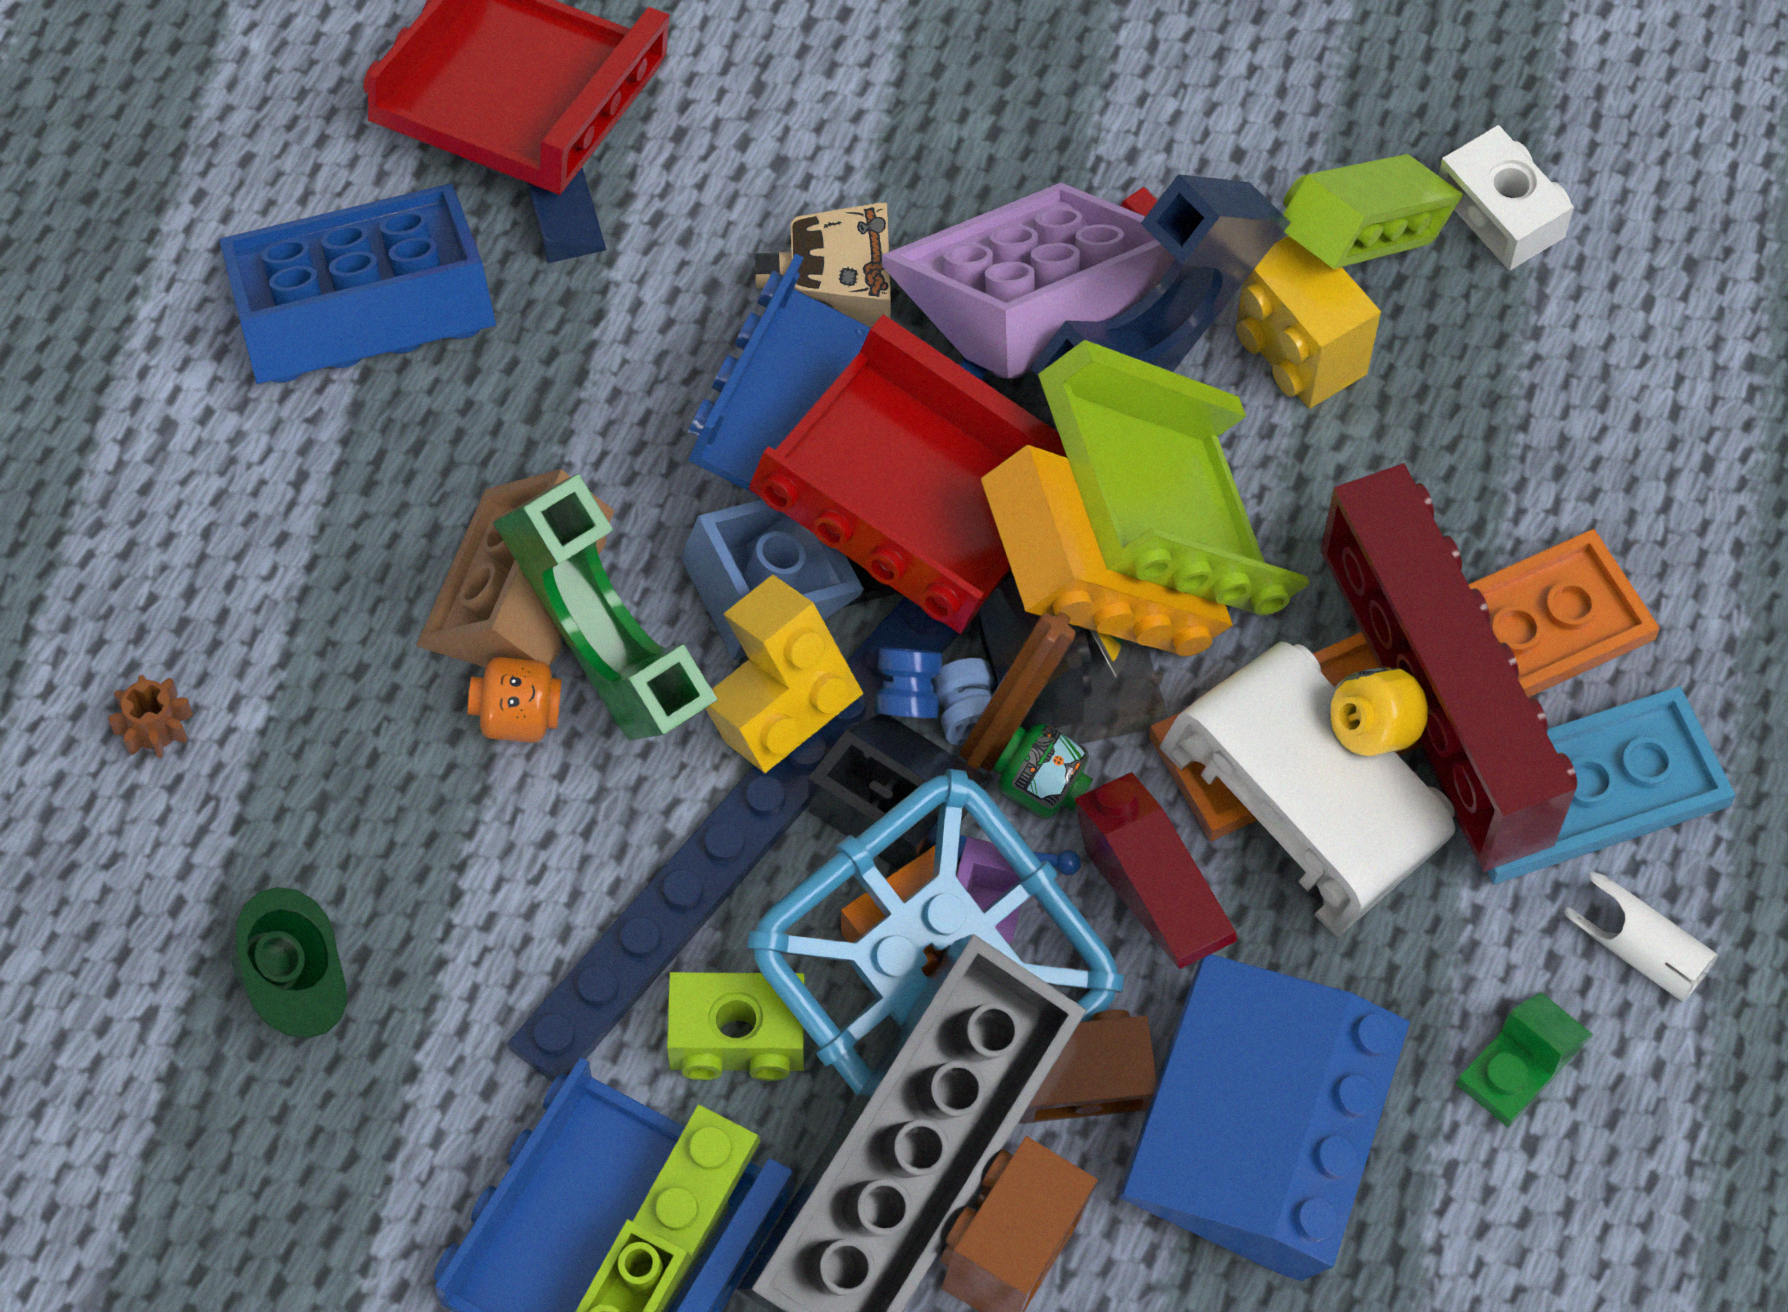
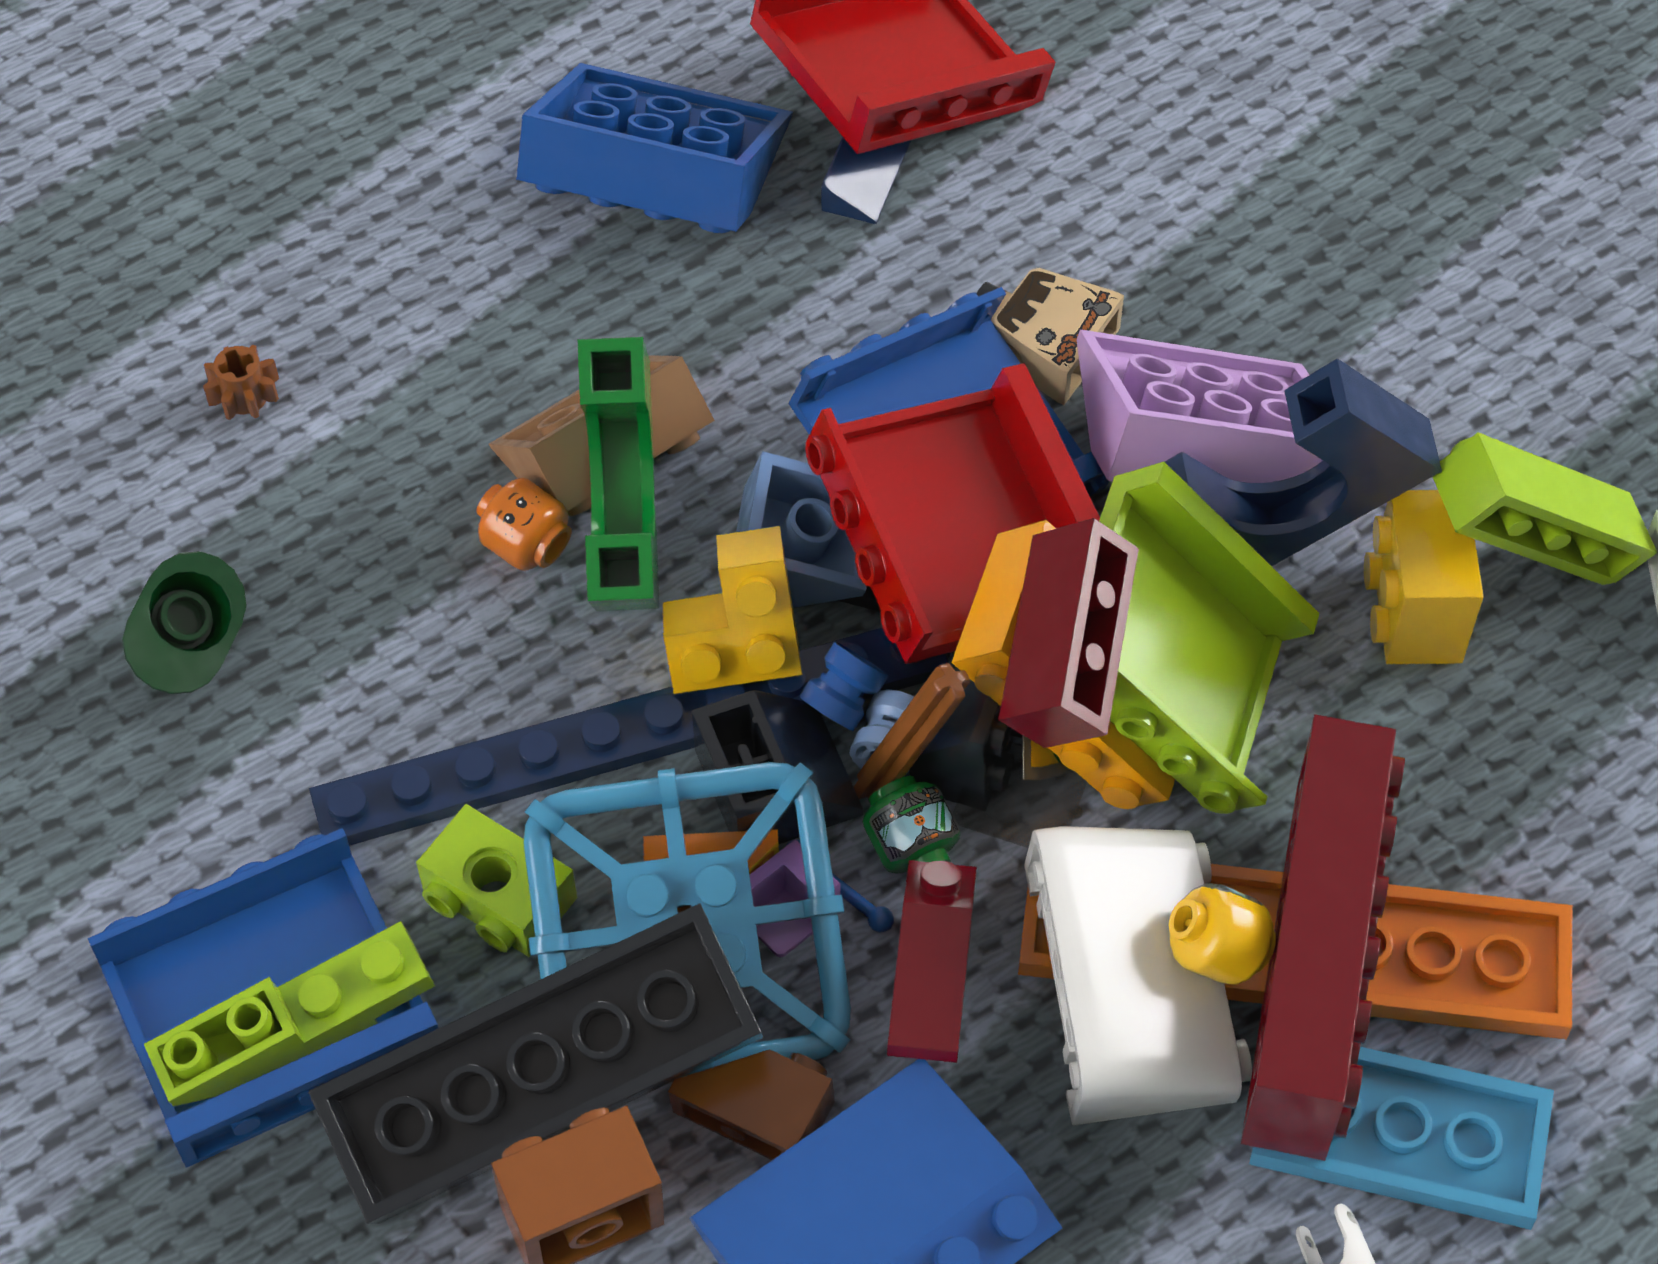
camera: 35 degrees right, 5 degrees down
(1122, 532) = (1069, 634): none -> dark red brick

